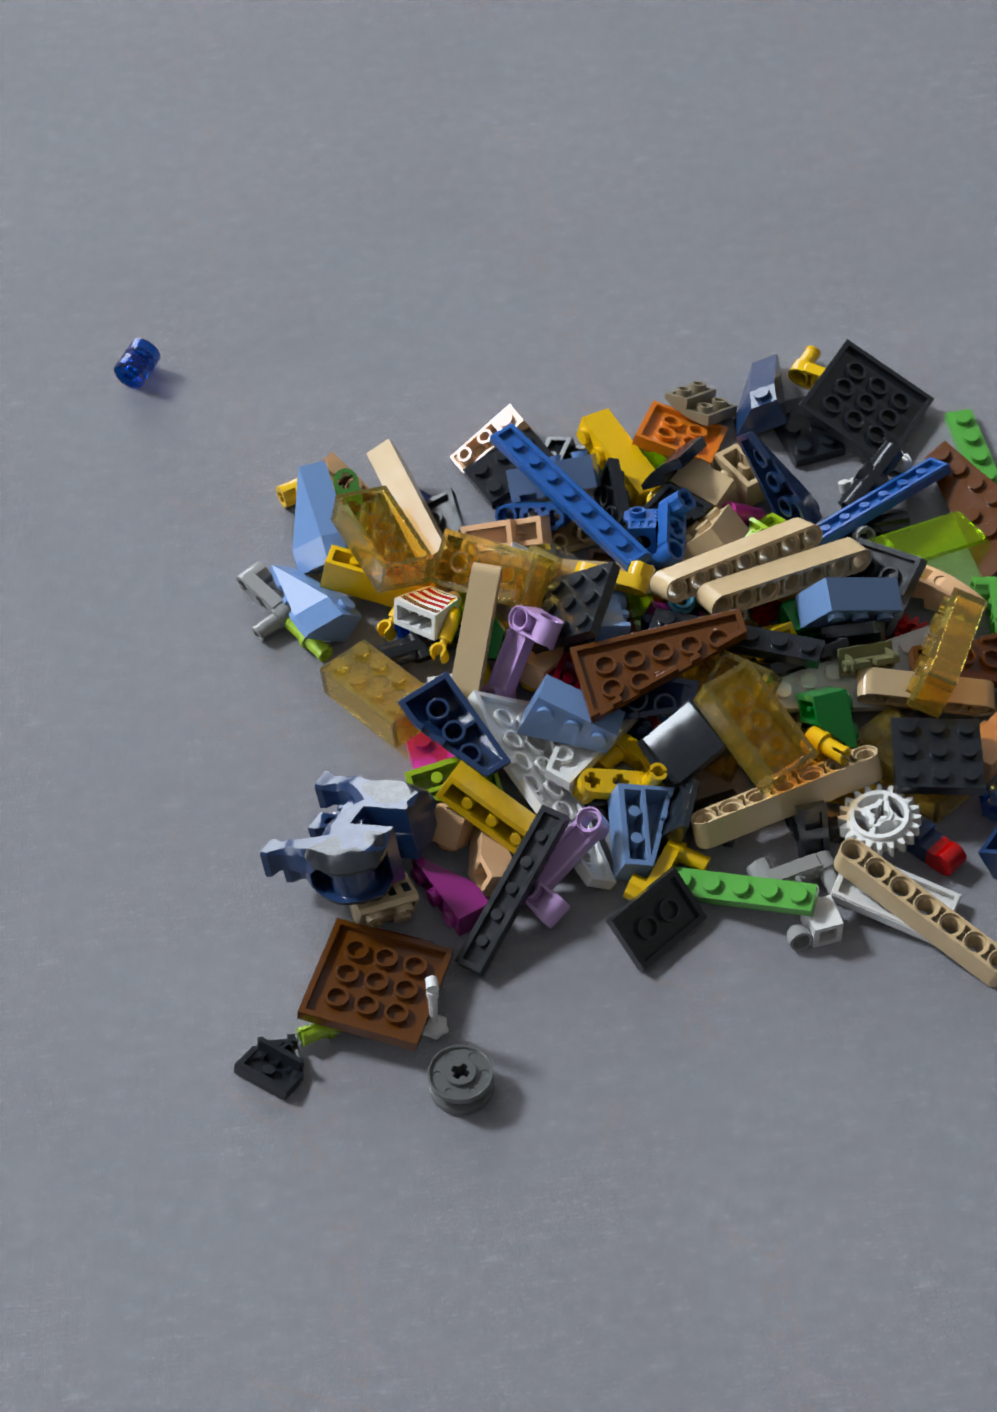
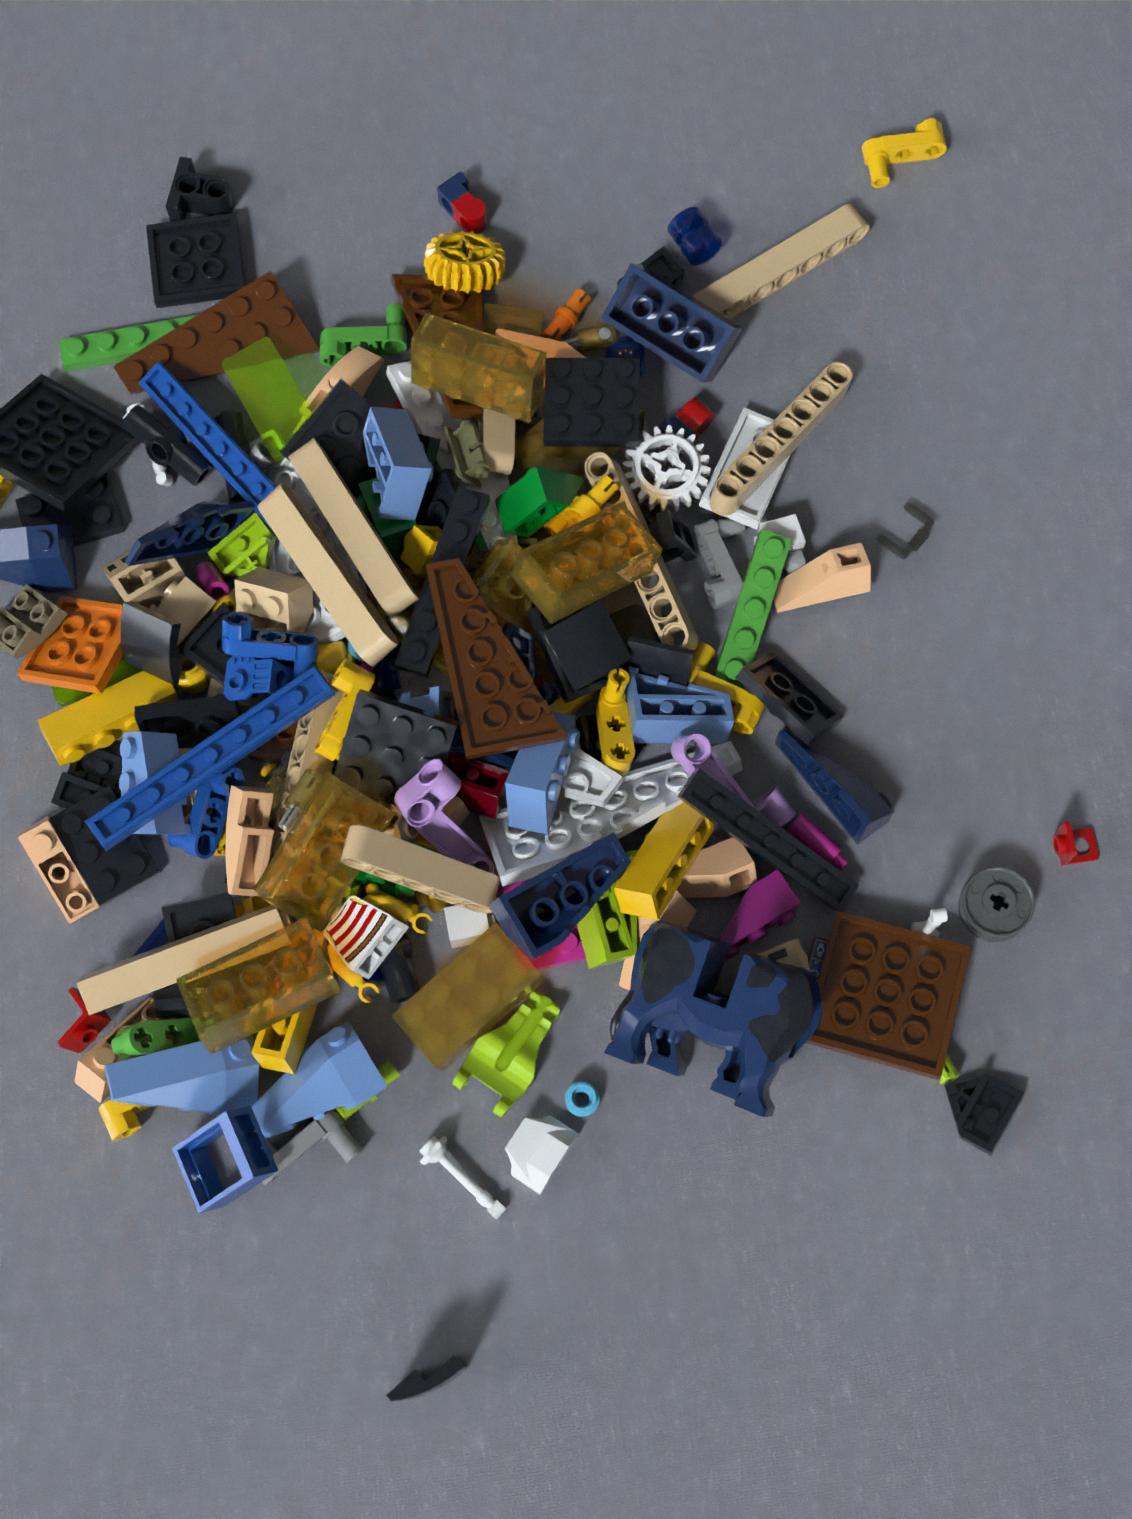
camera: 90 degrees left, 20 degrees up
(80, 675) = (418, 1384): none -> black slope
(255, 750) = (539, 1150): none -> white slope
(257, 682) = (435, 1151): none -> white piece
(262, 543) = (247, 1148): none -> blue window
(296, 772) = (579, 1088): none -> medium azure plate
(334, 726) = (509, 1054): none -> lime animal
(361, 465) = (84, 1028): none -> red bracket
(518, 1139) = (1066, 848): none -> red bracket
(521, 946) = (817, 840): none -> dark pink cylinder
(559, 961) = (845, 795): none -> dark blue wedge
(781, 954) = (826, 578): none -> light nougat slope
(835, 1039) = (916, 541): none -> clear smoke piece

